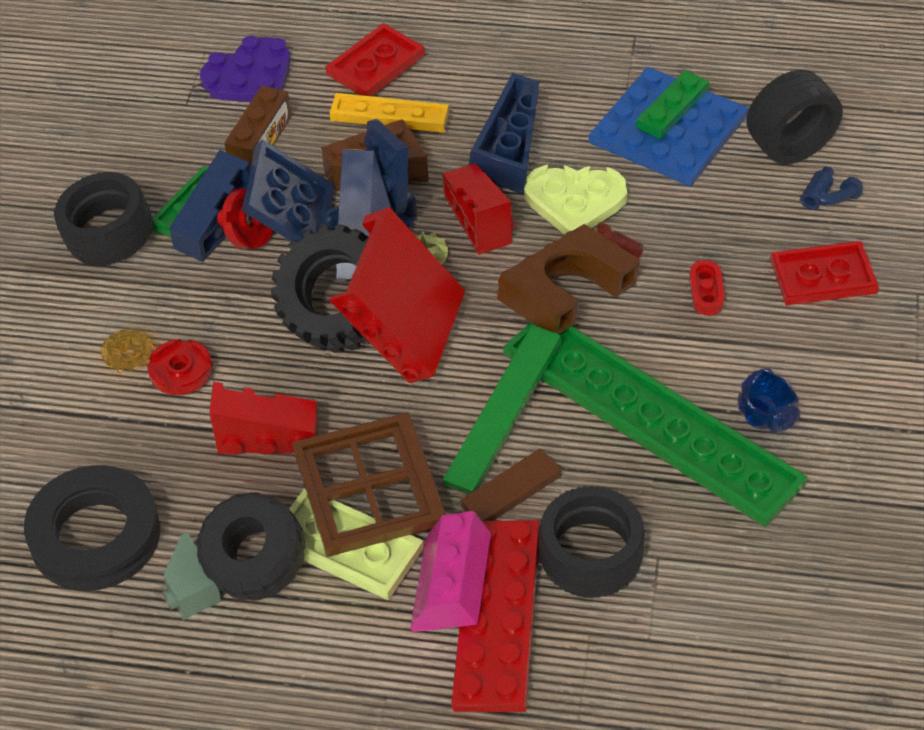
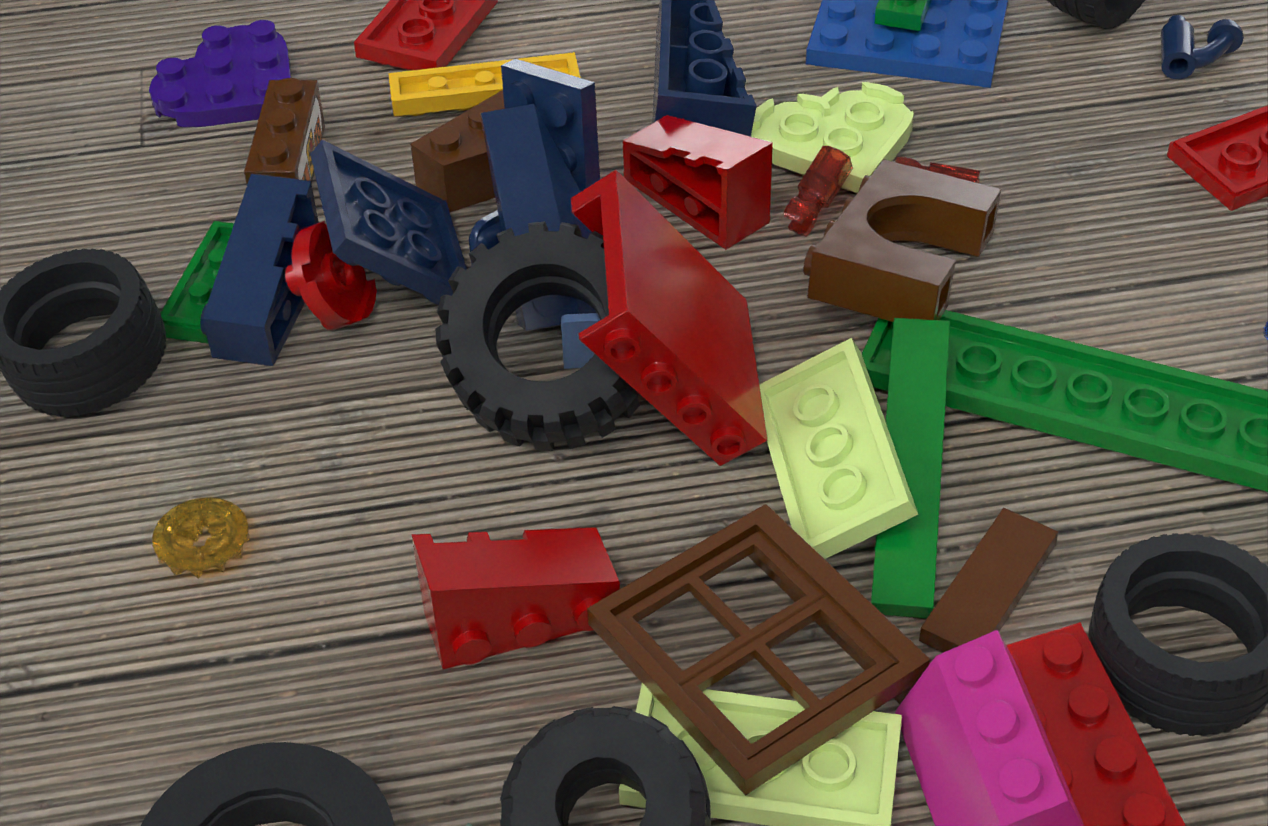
camera: 20 degrees left, 5 degrees down
(179, 367) = (311, 539): red plate -> none
(461, 392) = (834, 451): none -> yellowish green plate
(540, 232) = (817, 189): none -> clear red bar
(706, 287) = (1110, 210): red plate -> none

